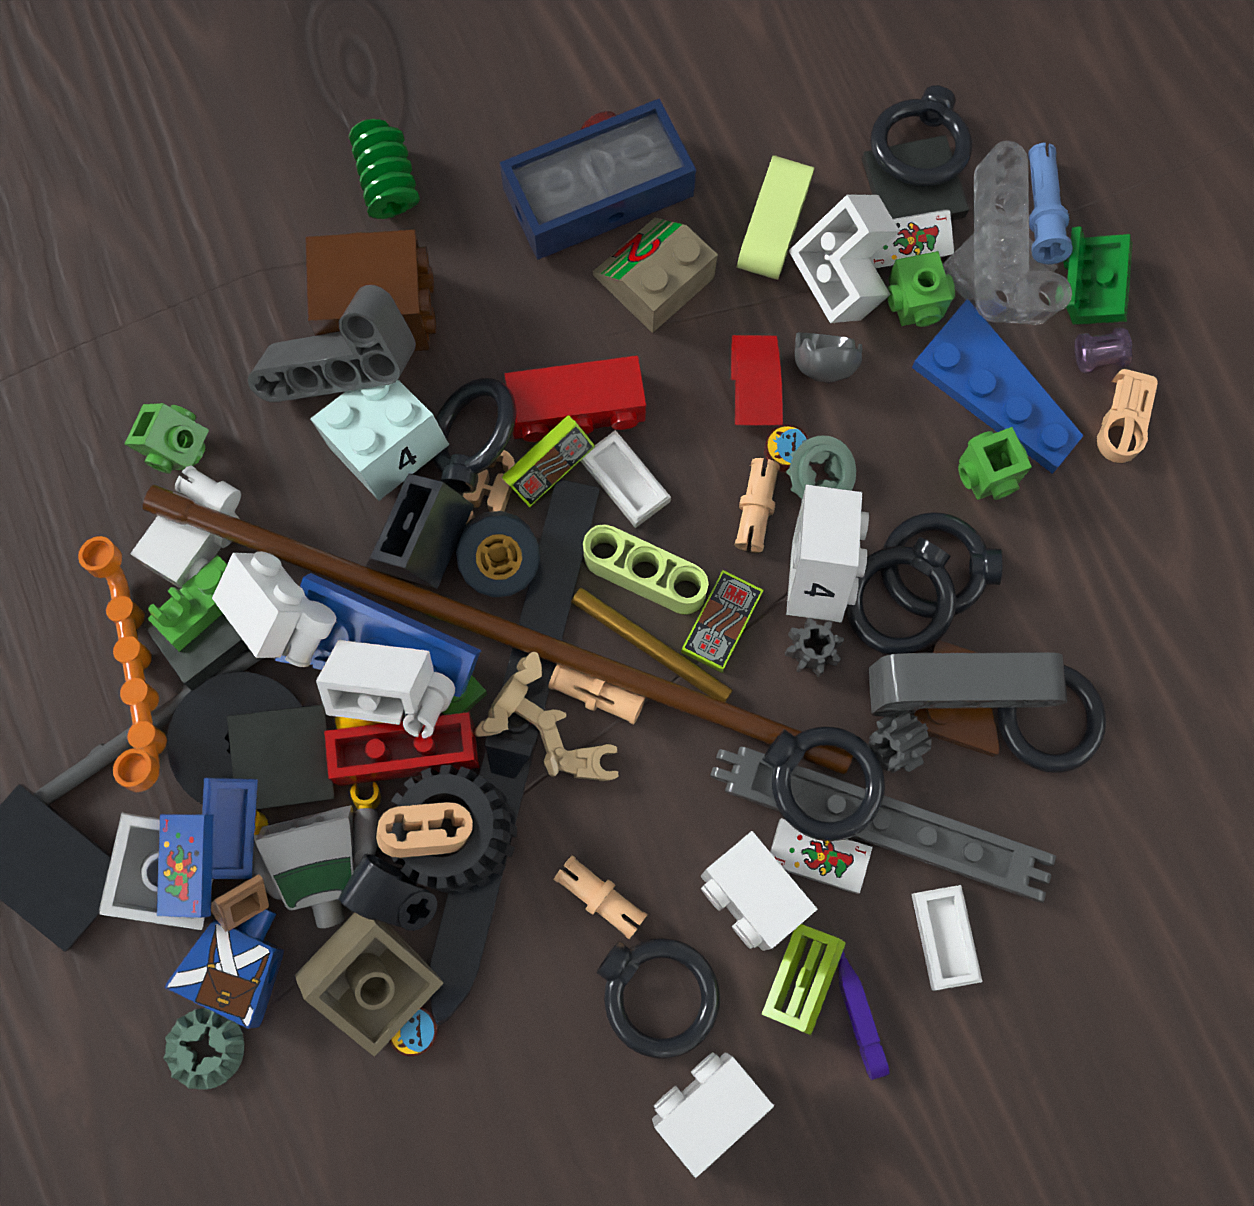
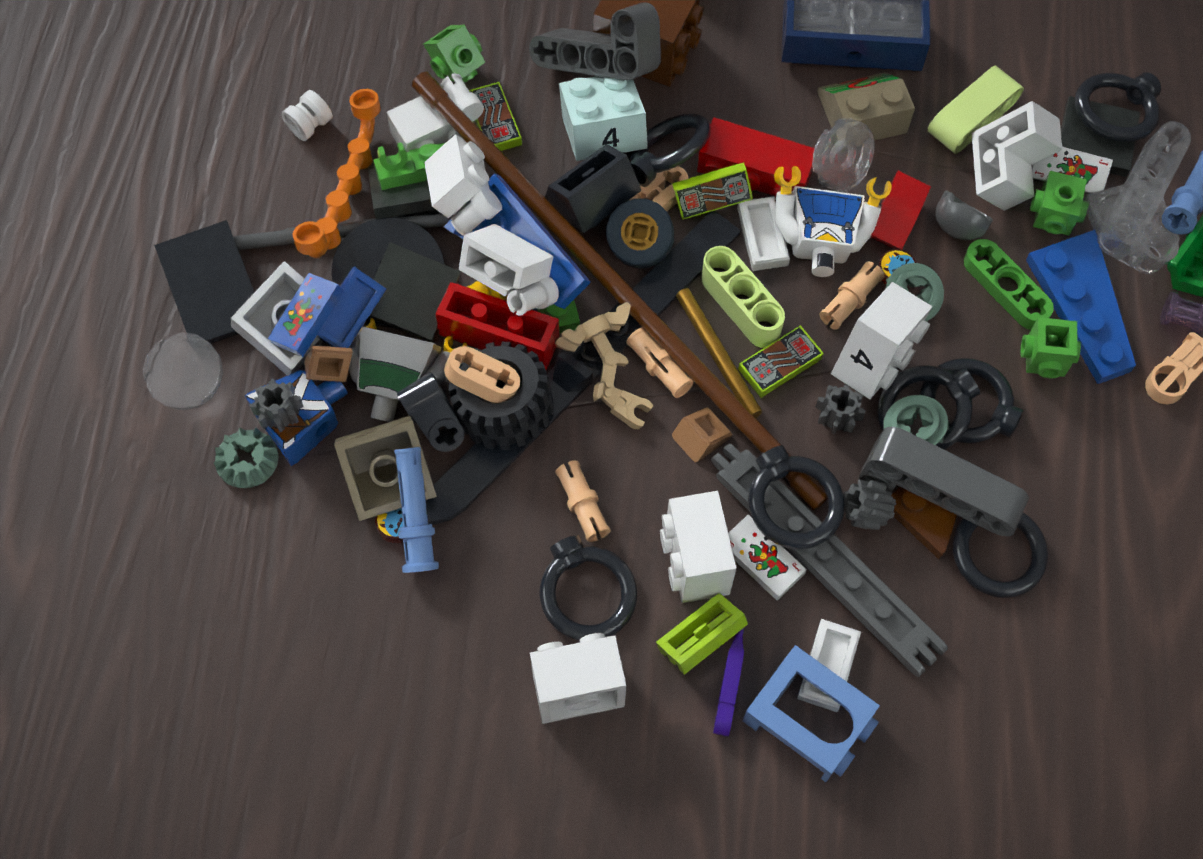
camera: 30 degrees right, 10 degrees down
(36, 599) = (307, 115): none -> white wheel
(72, 988) = (183, 371): none -> clear tile
(209, 1003) = (276, 405): none -> dark grey gear
(261, 494) = (497, 117): none -> tile
(444, 1035) = (415, 530): none -> medium blue pin
(668, 347) = (843, 155): none -> clear tile
(682, 749) = (701, 434): none -> medium nougat slope
(690, 436) = (823, 222): none -> torso
(910, 996) = (823, 755): none -> medium blue panel
(914, 608) = (930, 411): none -> sand green gear
(944, 407) = (1007, 268): none -> bright green beam

